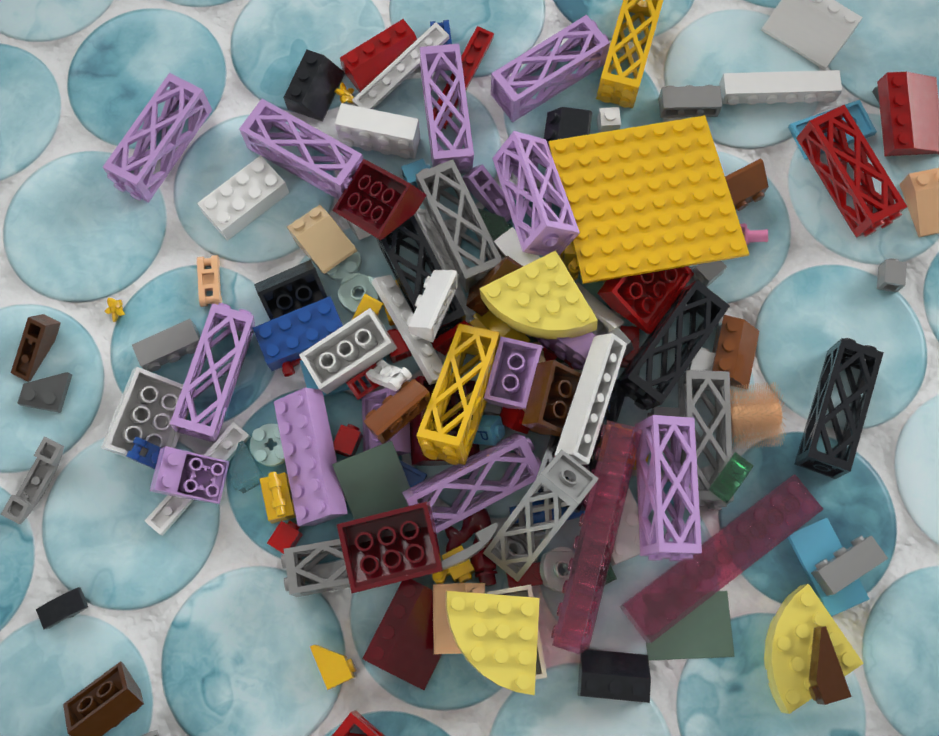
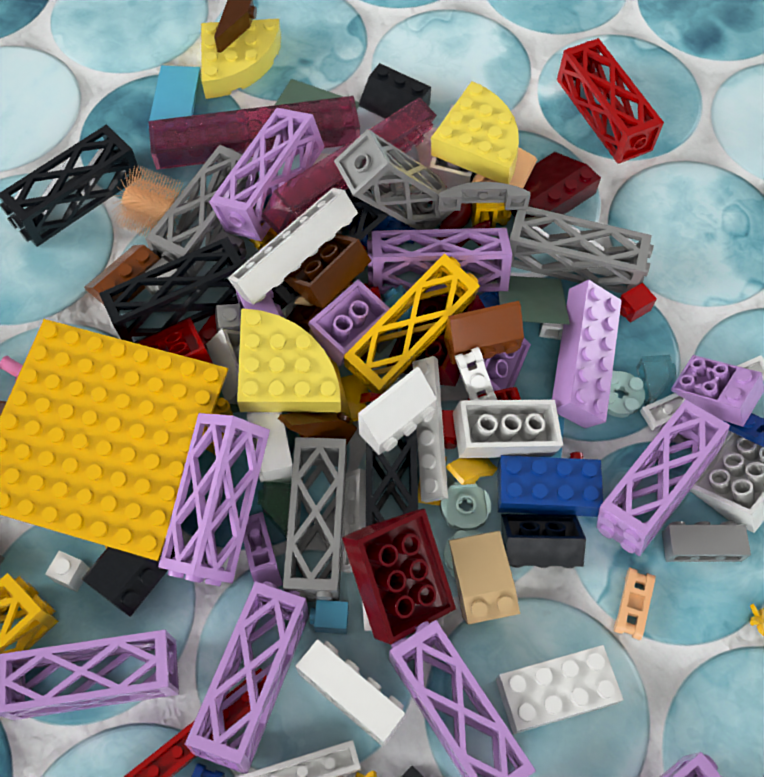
camera: 155 degrees left, 10 degrees down
(277, 497) = (631, 337): yellow brick -> none
(333, 666) = (627, 192): yellow slope -> none
(347, 440) = (541, 359): red brick -> none
(390, 547) = (545, 218): dark red slope -> none
(730, 477) = (215, 152): clear green slope -> none
(848, 564) = (159, 83): light grey brick -> none

